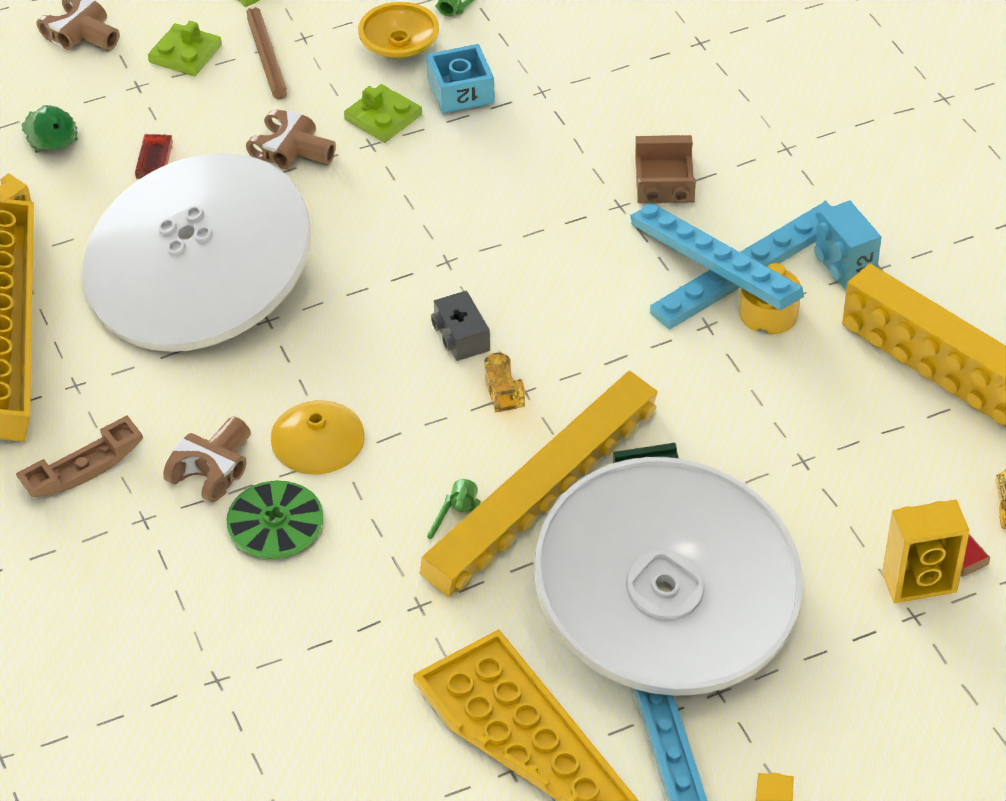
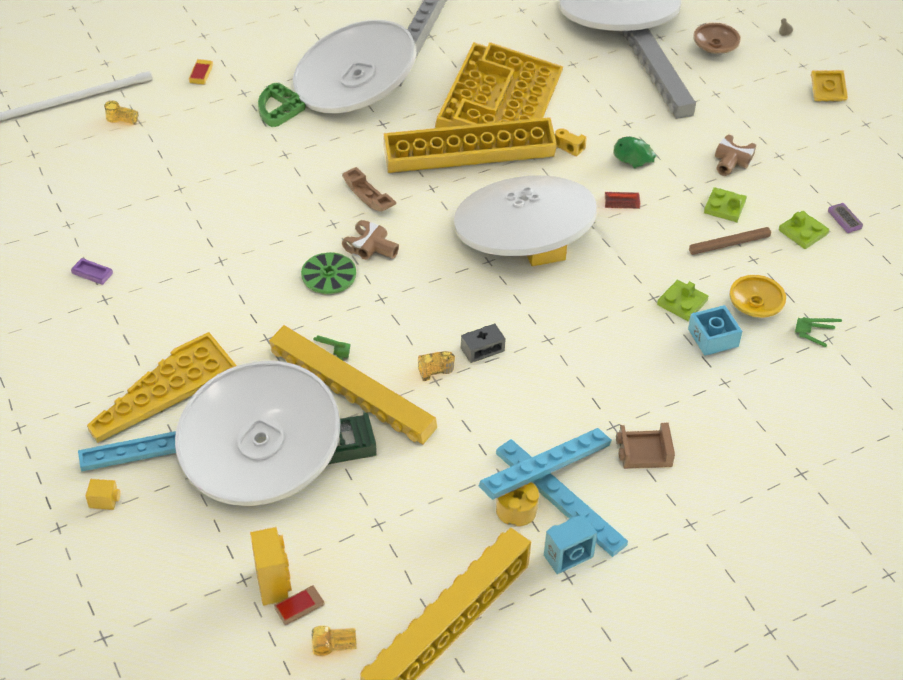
camera: 85 degrees right, 0 degrees up
(290, 139) = (641, 257): medium nougat connector -> none
(317, 437) = (394, 288): yellow dish -> none

